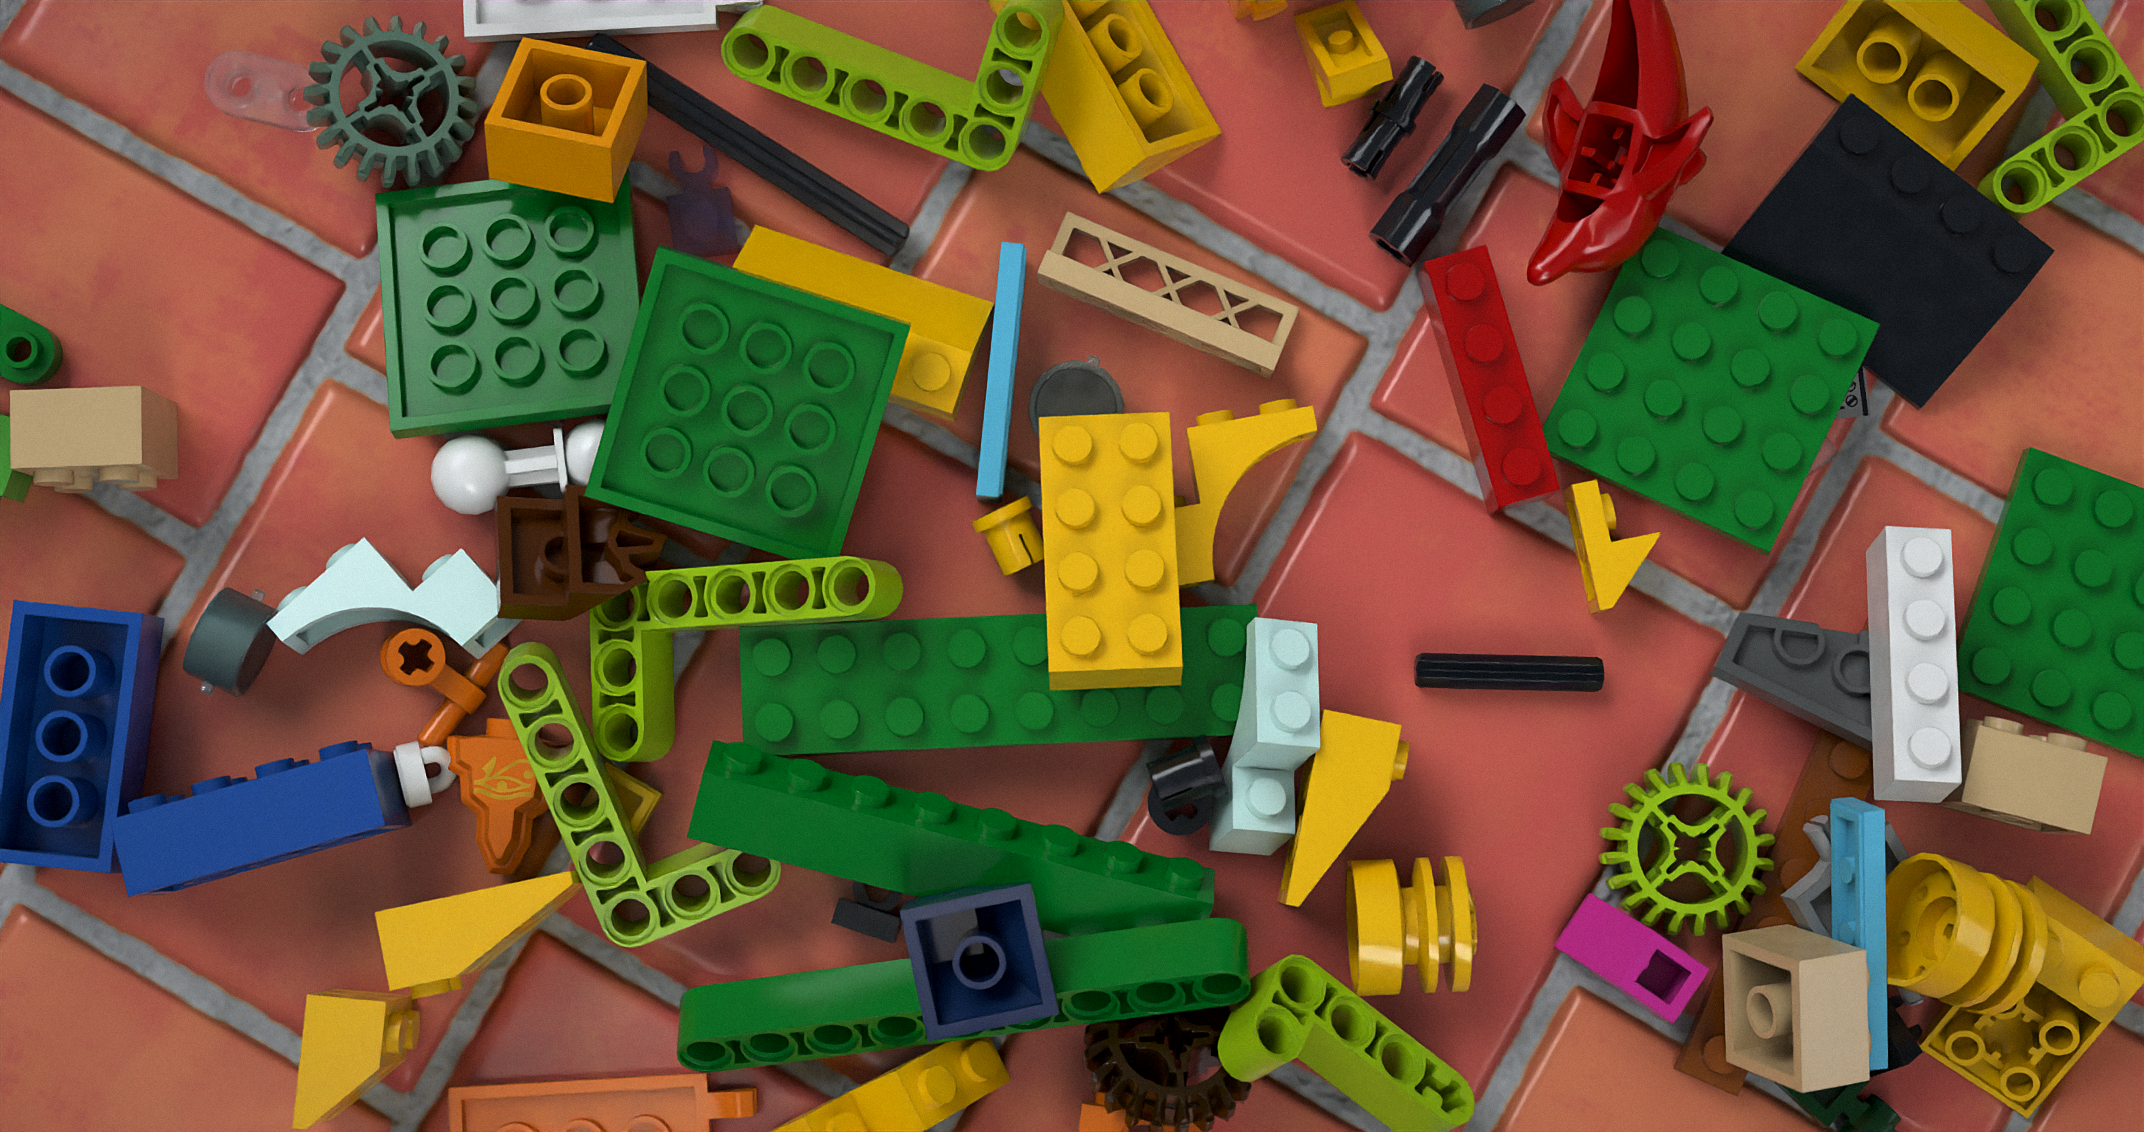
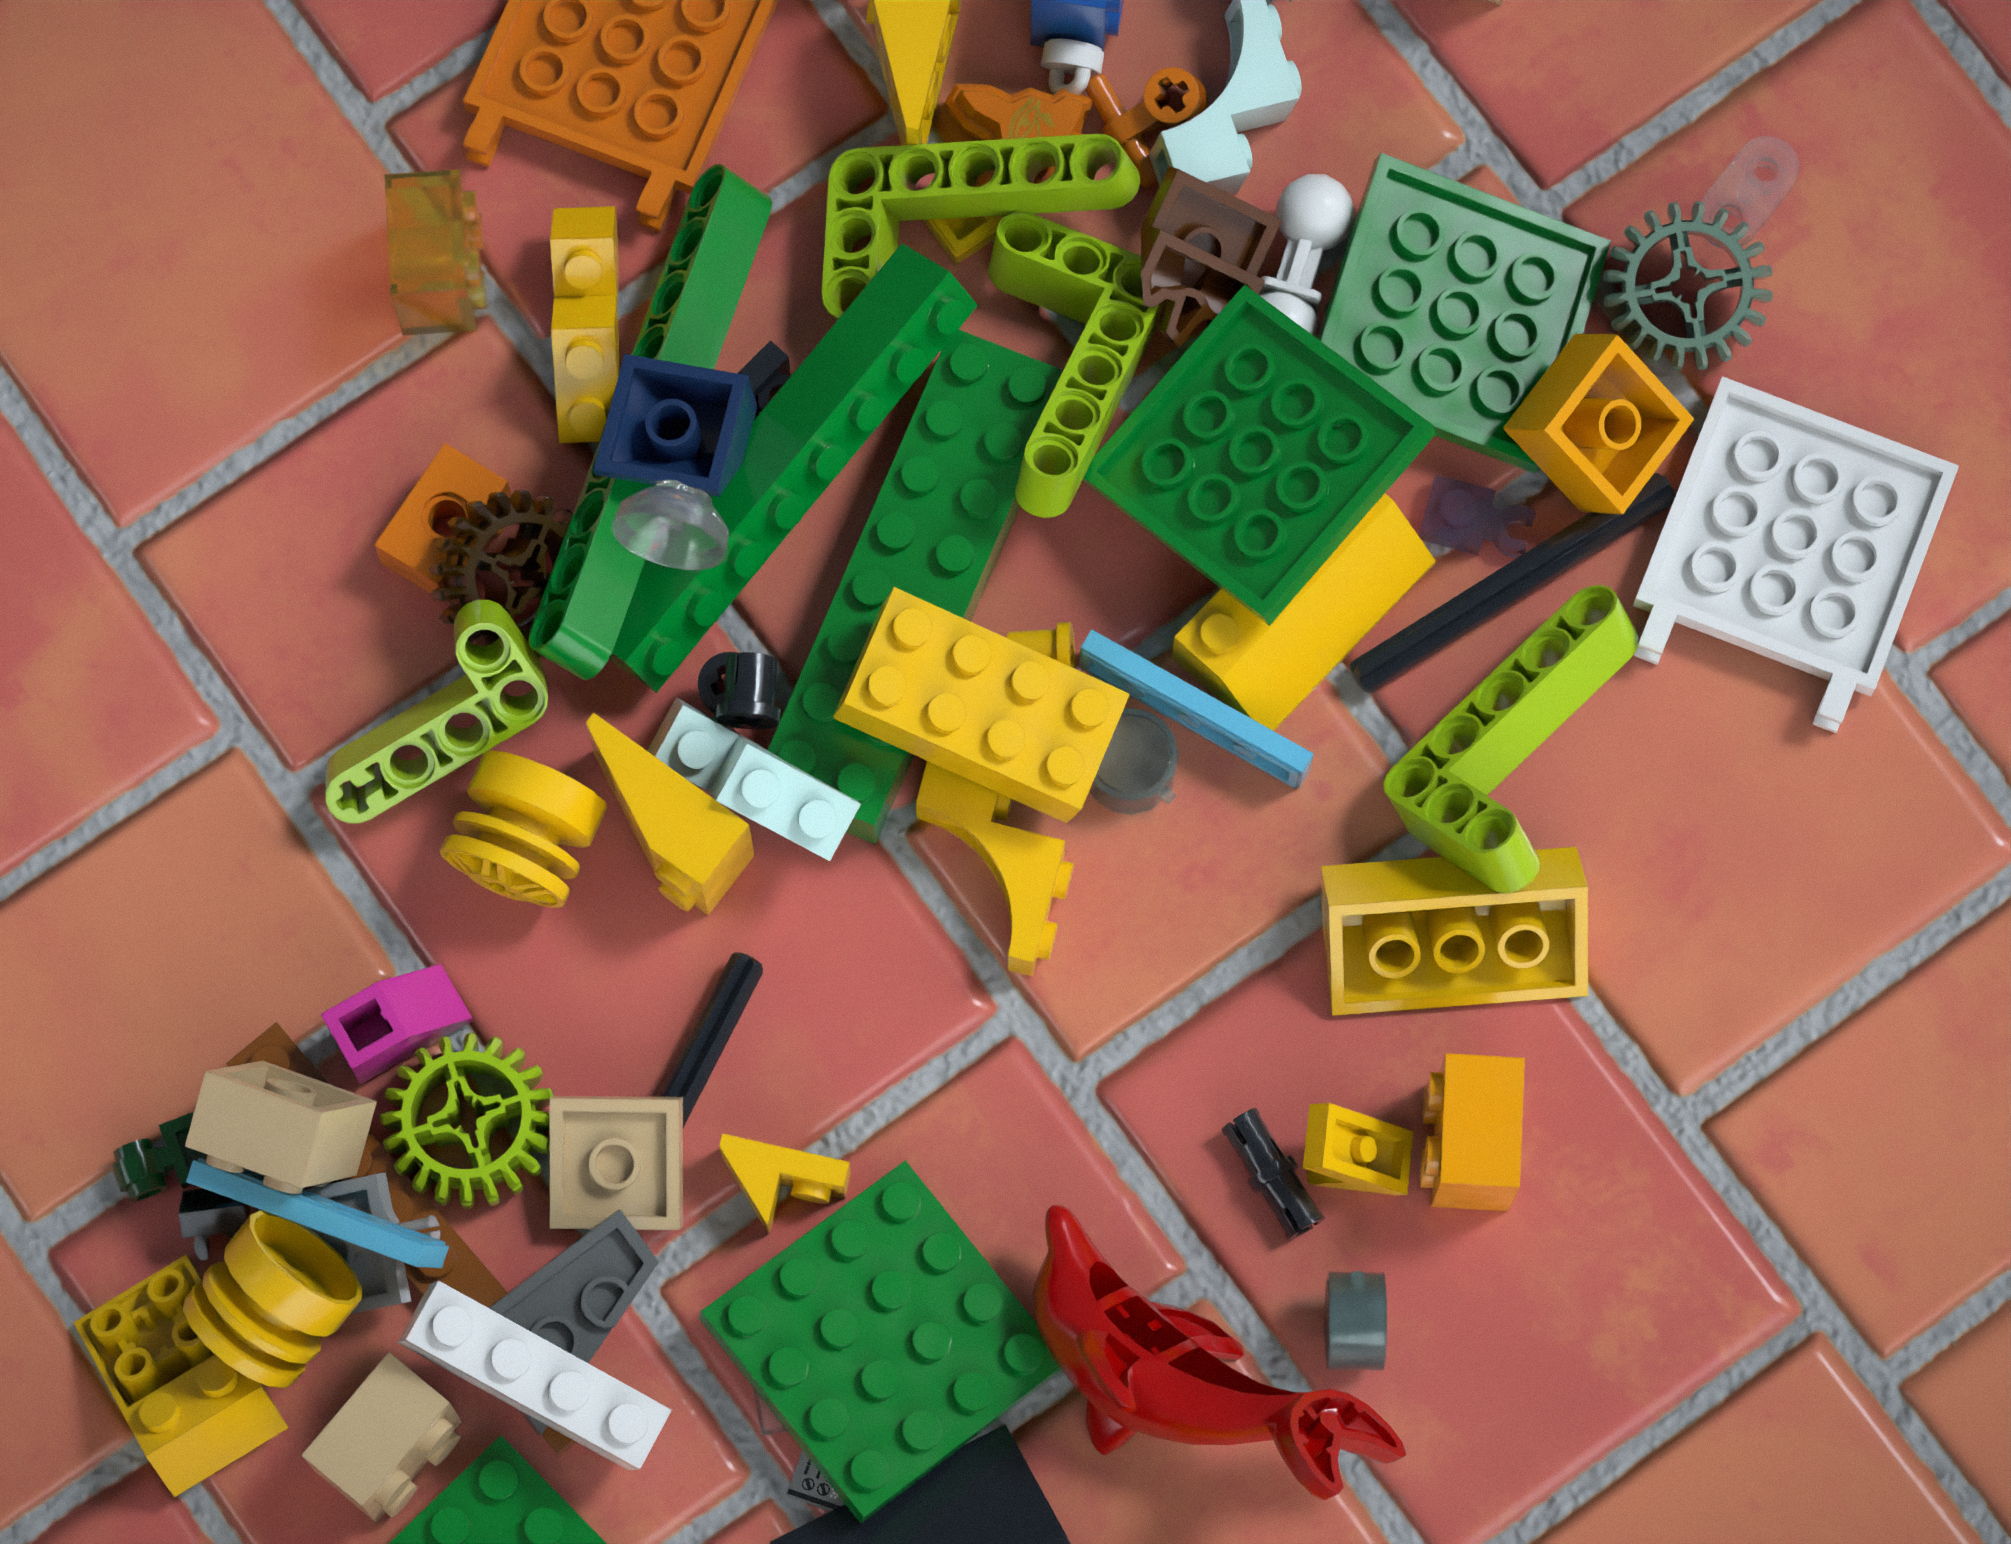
camera: 115 degrees right, 10 degrees down
(1074, 913) = (672, 526): none -> clear piece
(1161, 314) = (1184, 874): tan fence -> none
(1445, 177) = (1215, 1234): black axle -> none
(1487, 379) = (983, 1139): red brick -> none
(1663, 697) = (616, 1157): none -> tan plate

